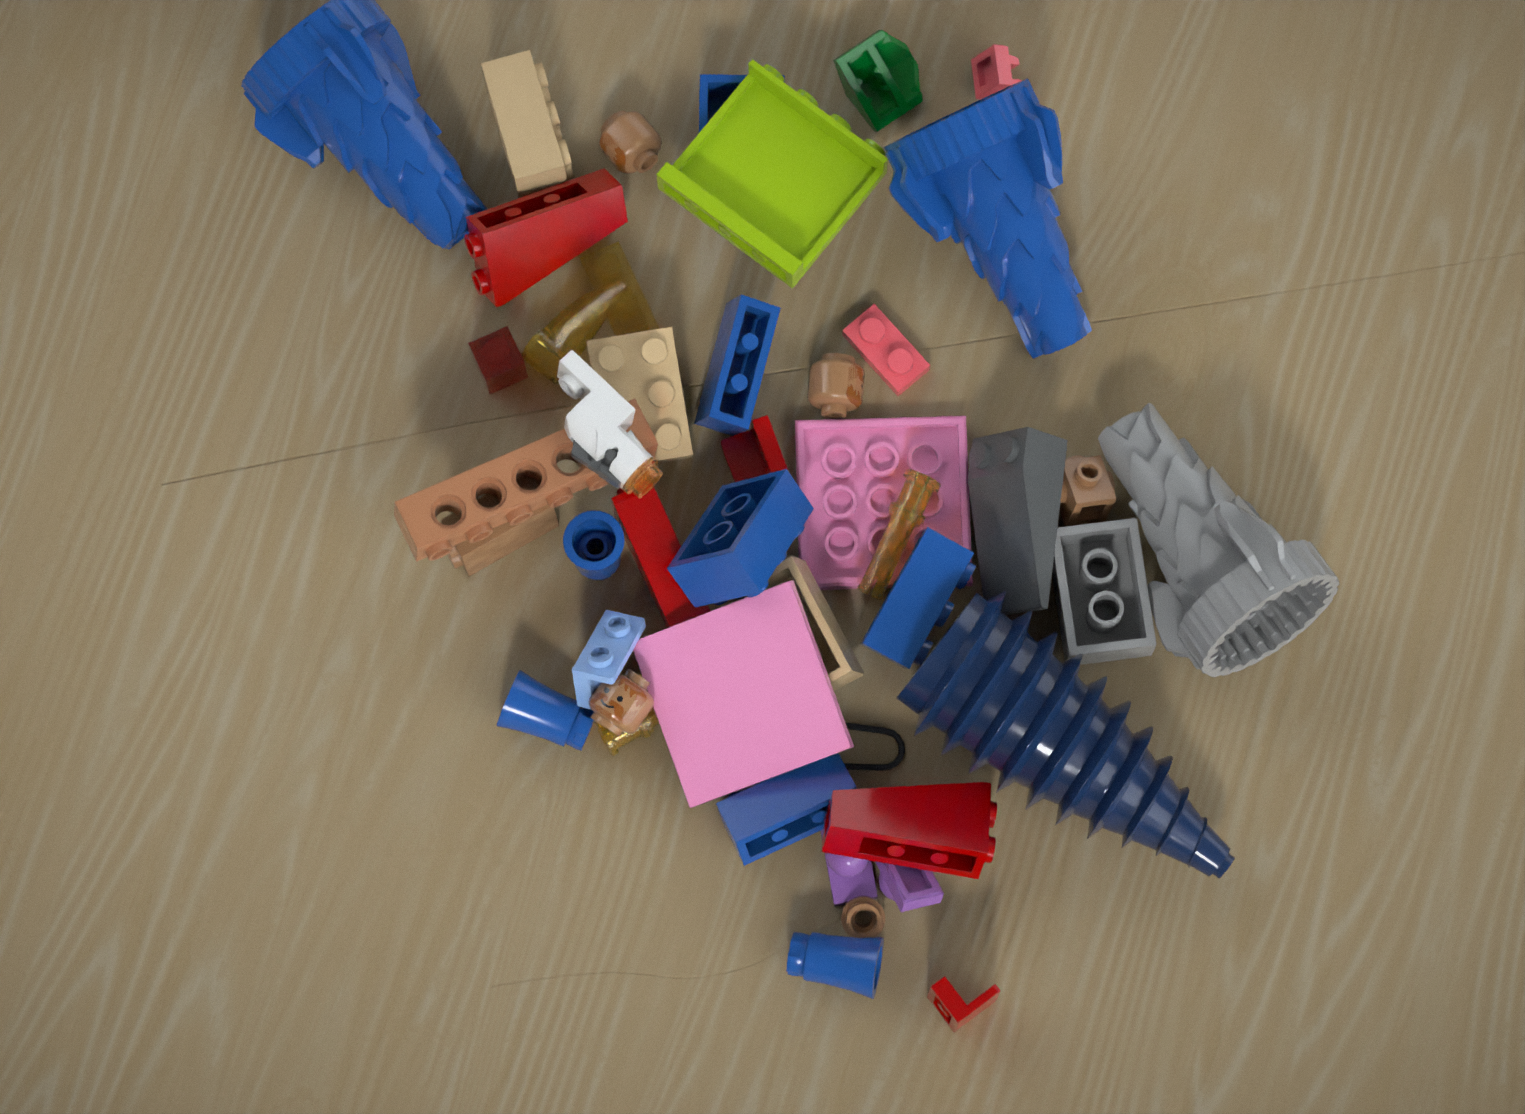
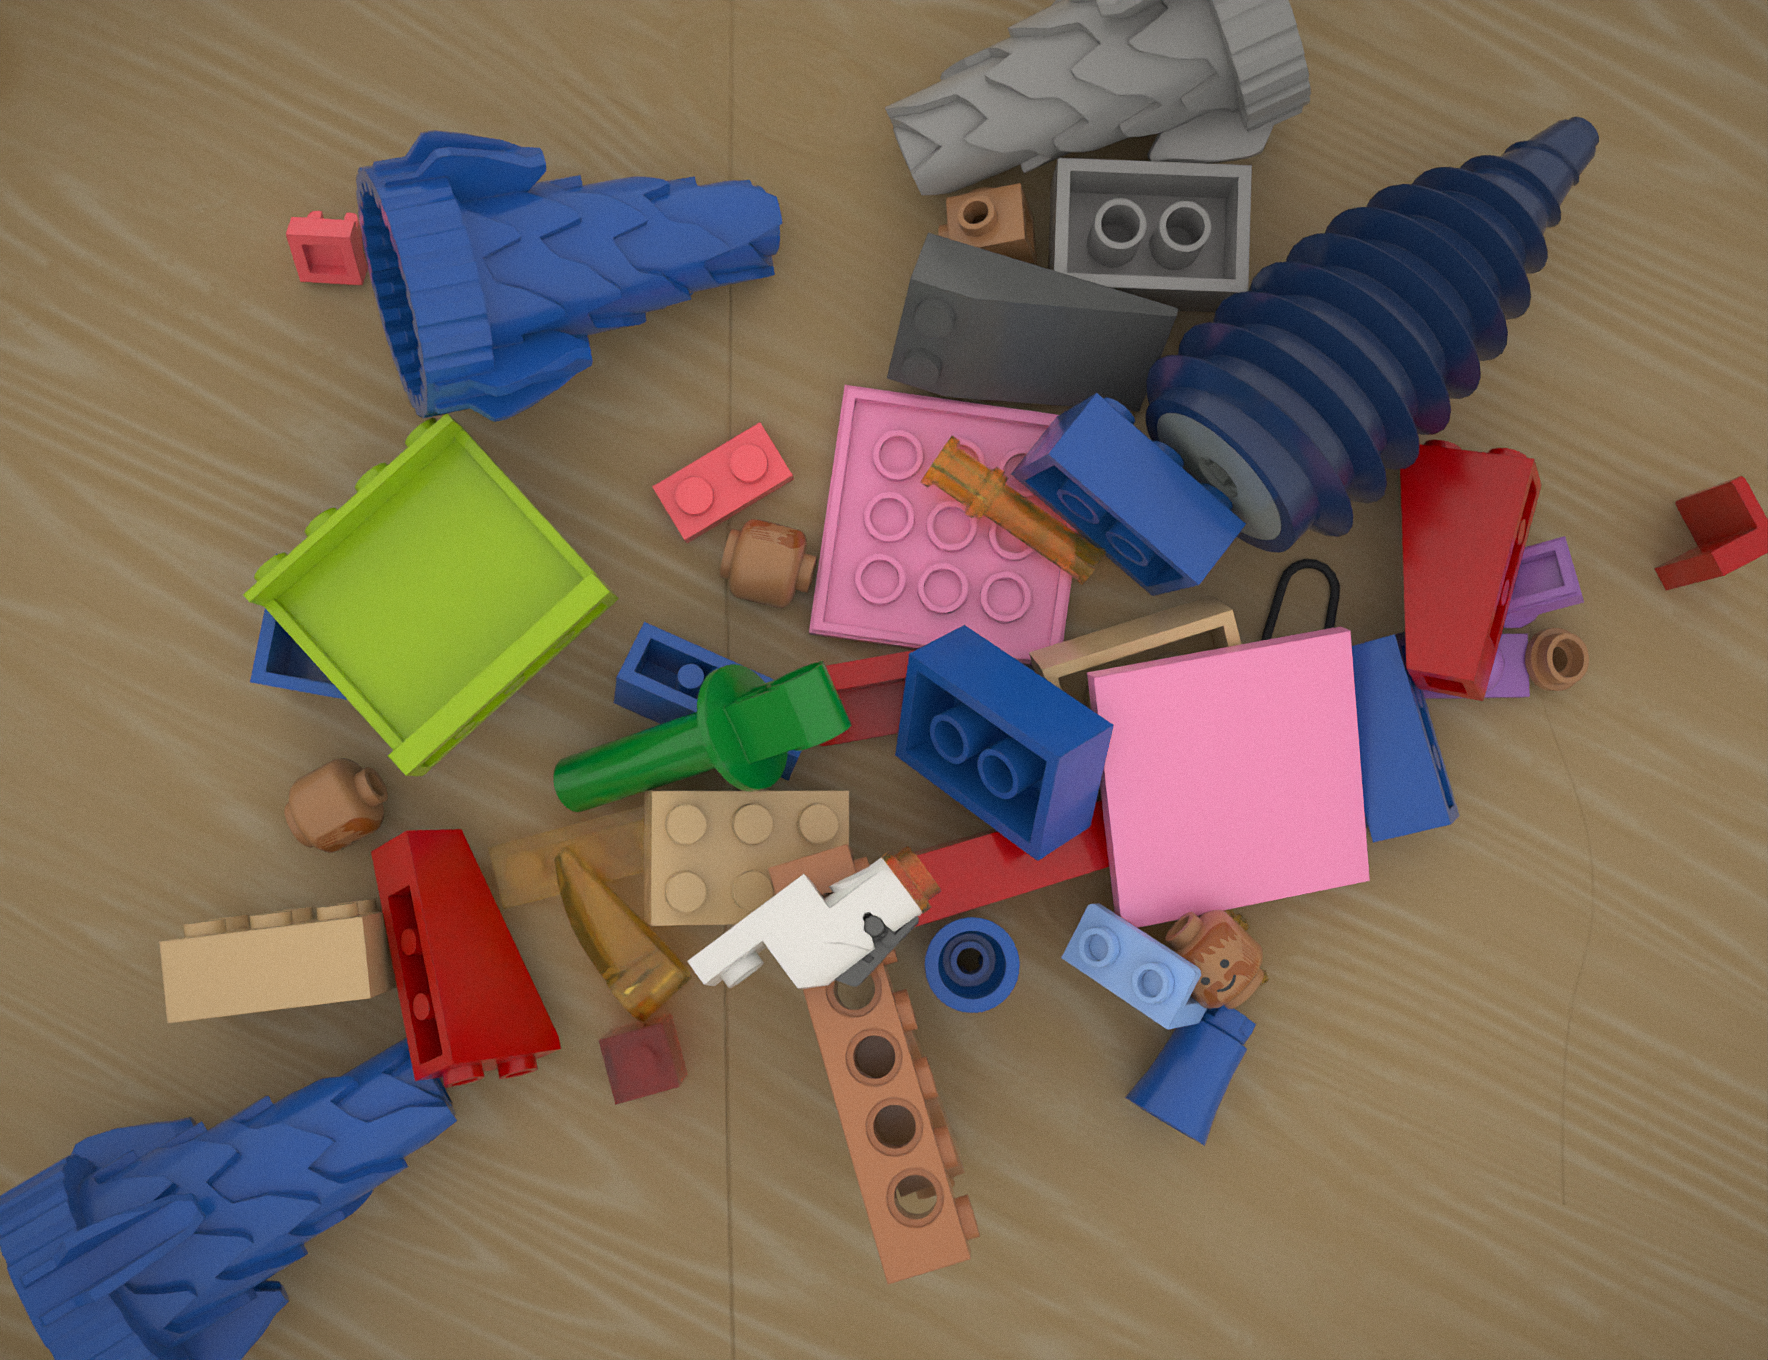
camera: 85 degrees left, 10 degrees up
(719, 368) = (738, 729): none -> green piece
(837, 961) = (1618, 705): blue plant -> none
(880, 78) = (306, 417): green slope -> none

